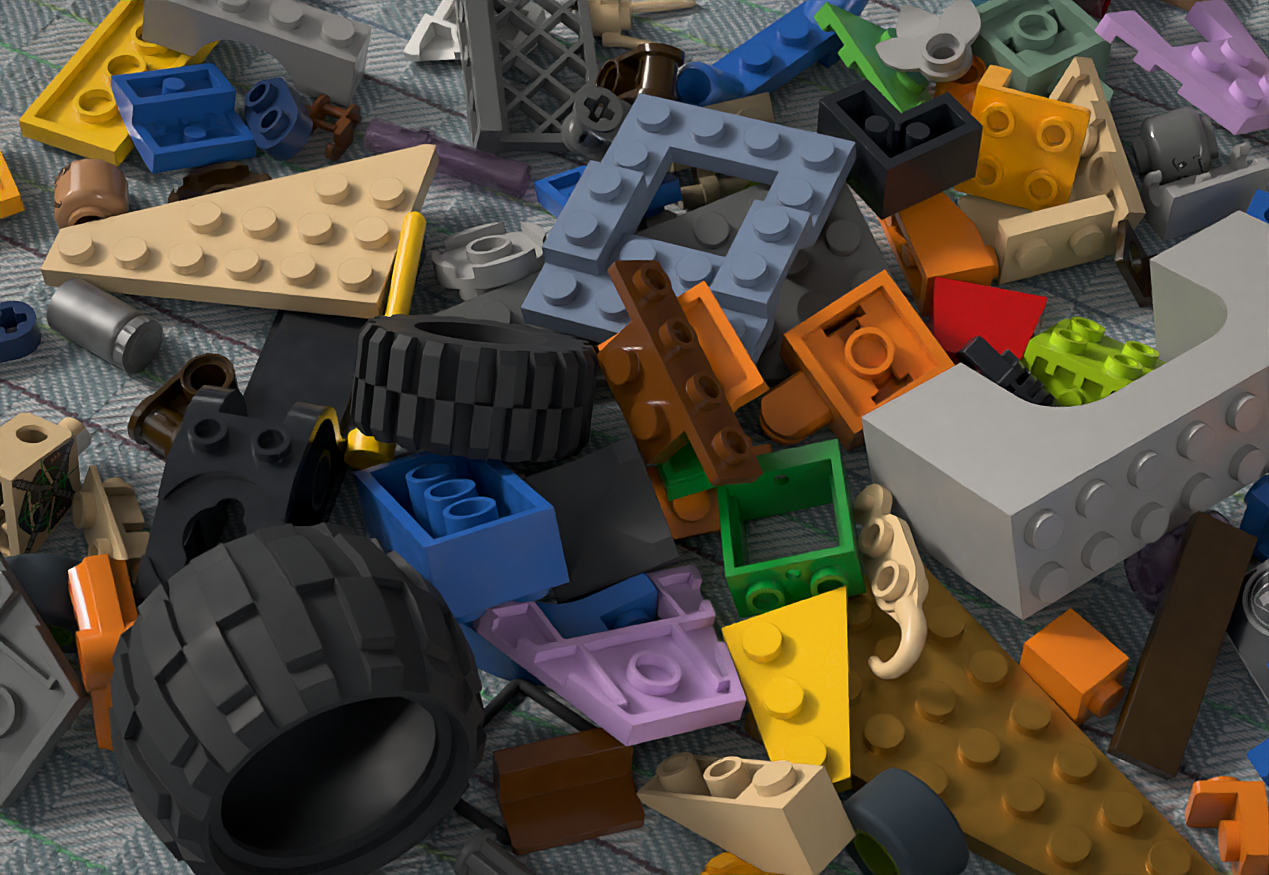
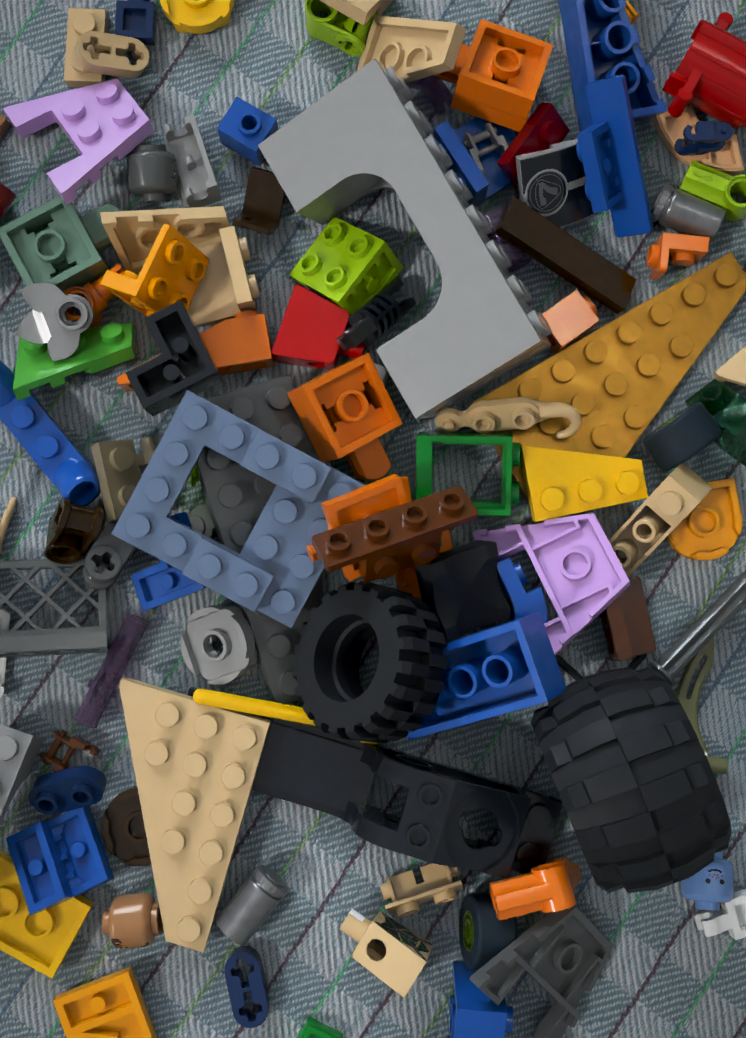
camera: 85 degrees left, 35 degrees up
(174, 398) = (336, 851): dark brown piece -> none

